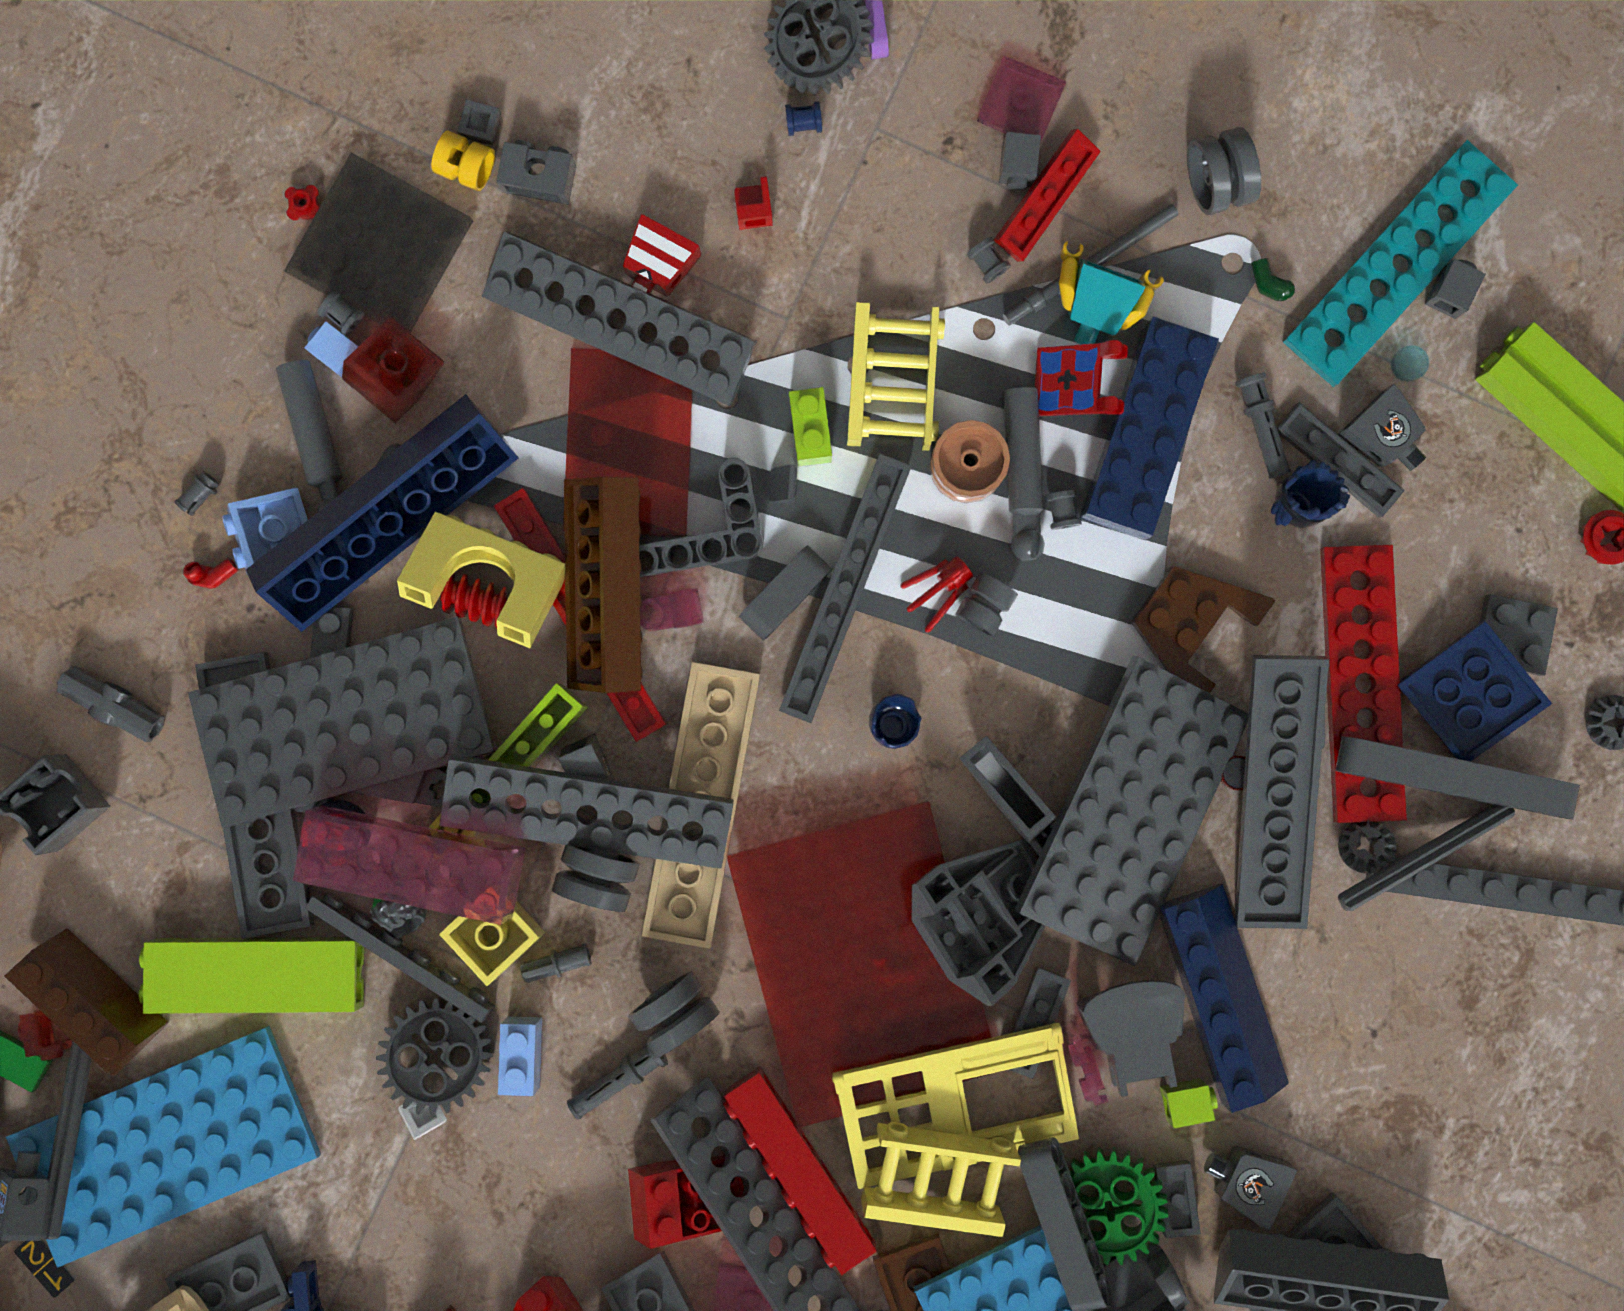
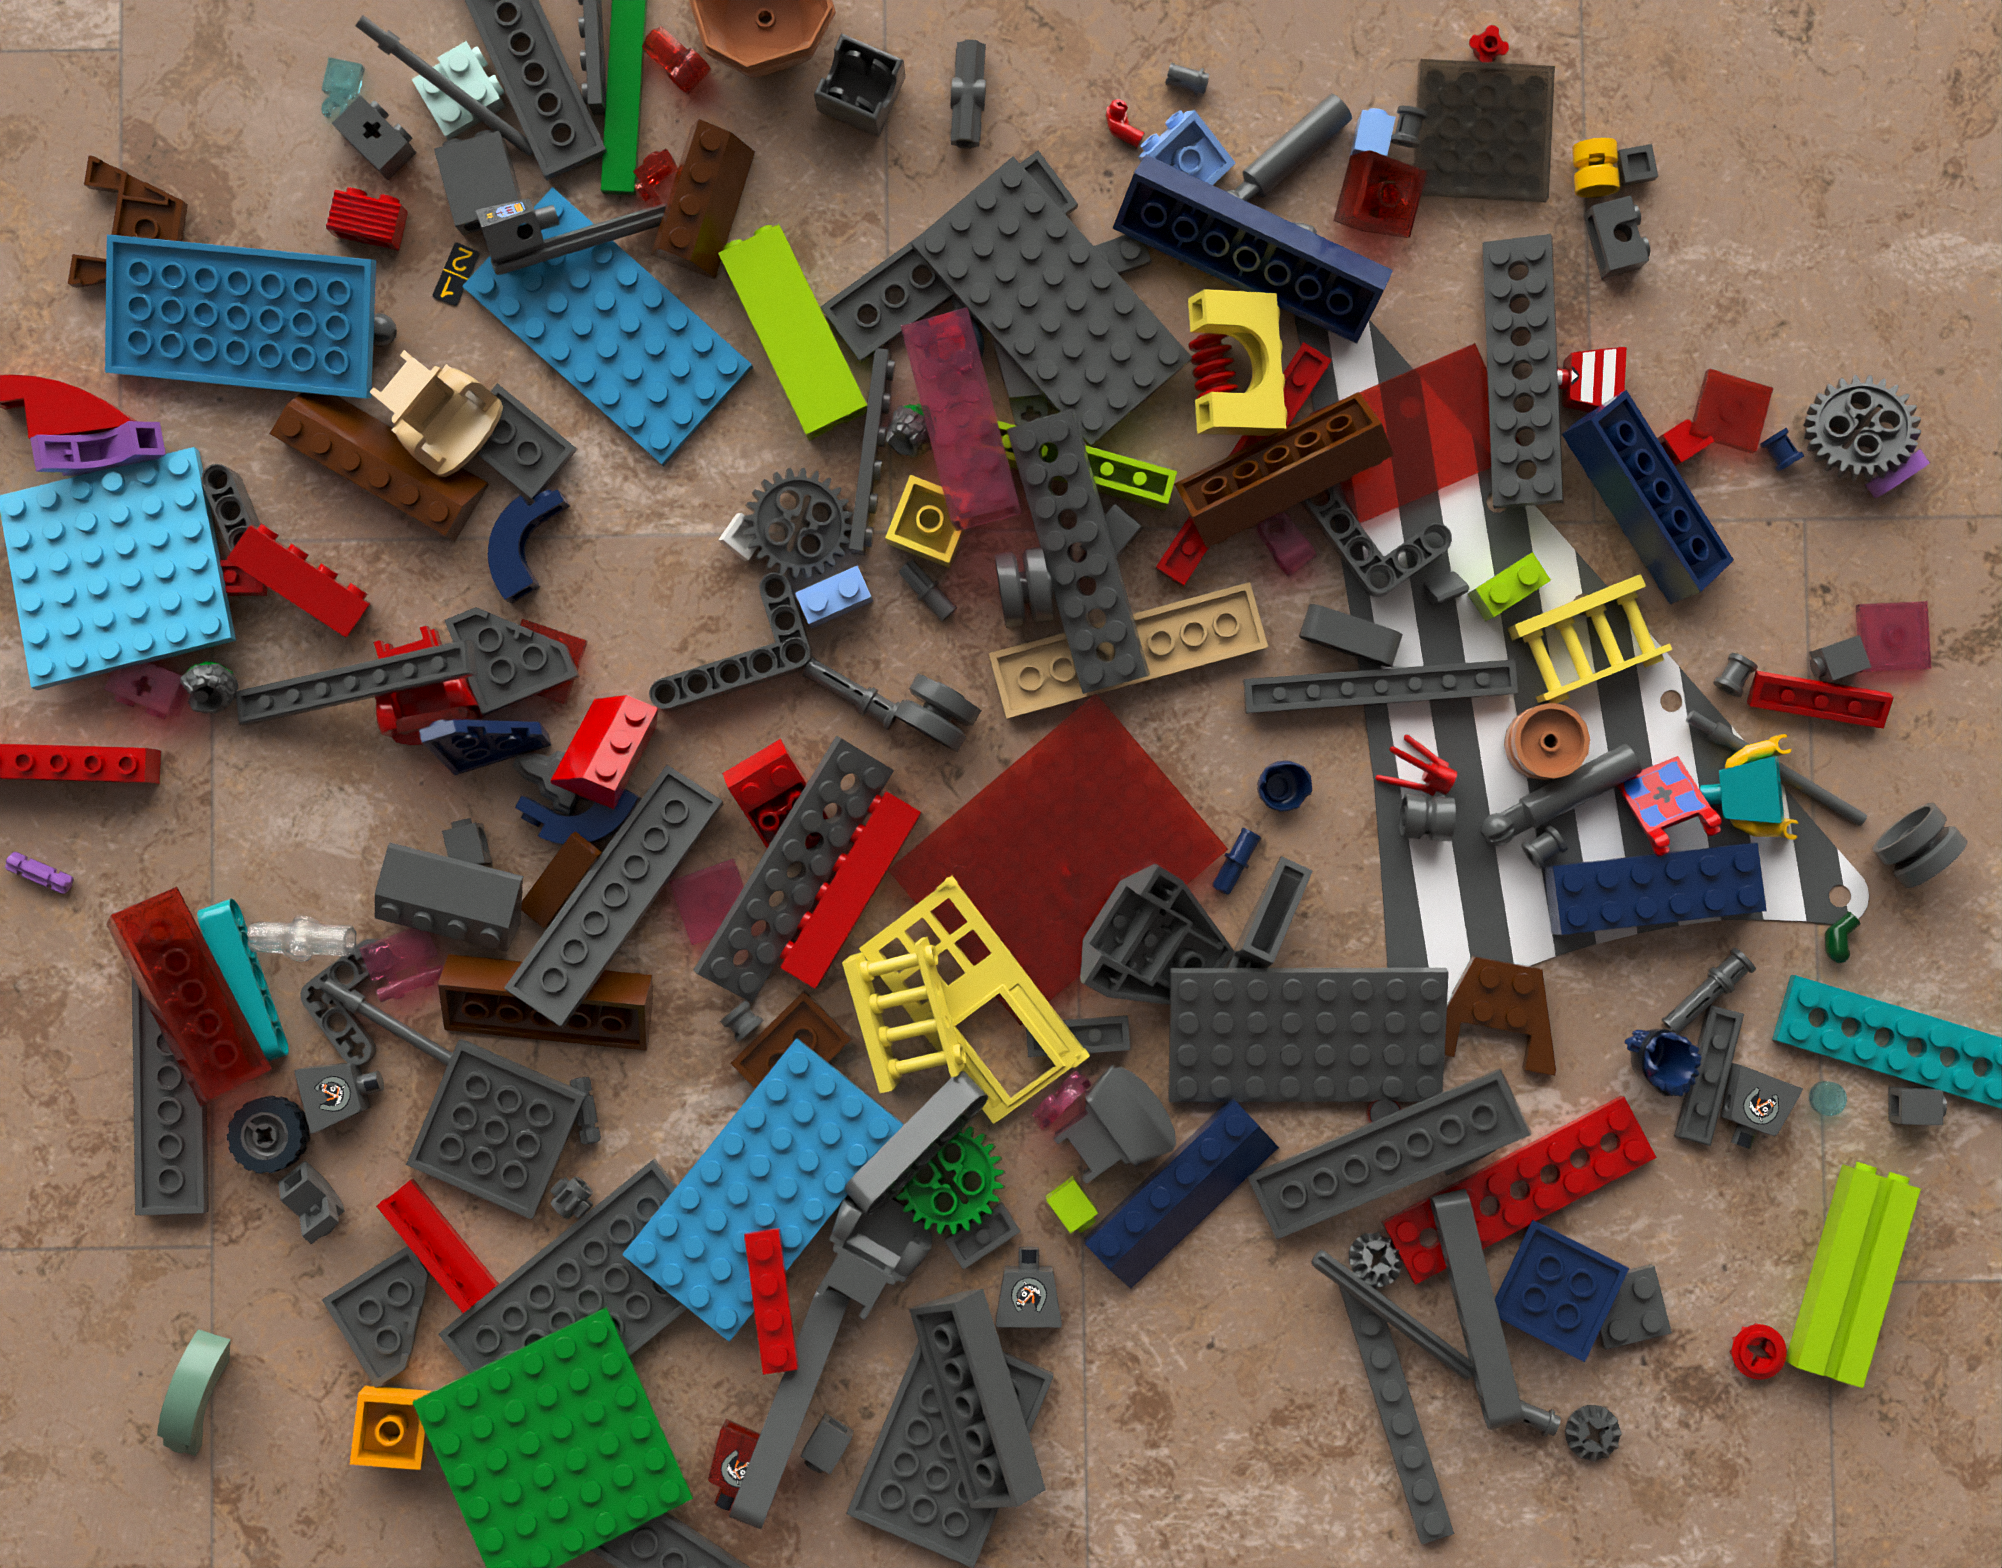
camera: 65 degrees right, 0 degrees up
(542, 1167) = (745, 661): none -> dark grey beam
(746, 146) = (1731, 411): none -> clear red tile
(789, 261) = (1648, 498): none -> dark blue slope
(943, 797) = (1236, 861): none -> dark blue axle
(1579, 766) = (1540, 1419): none -> dark grey pin

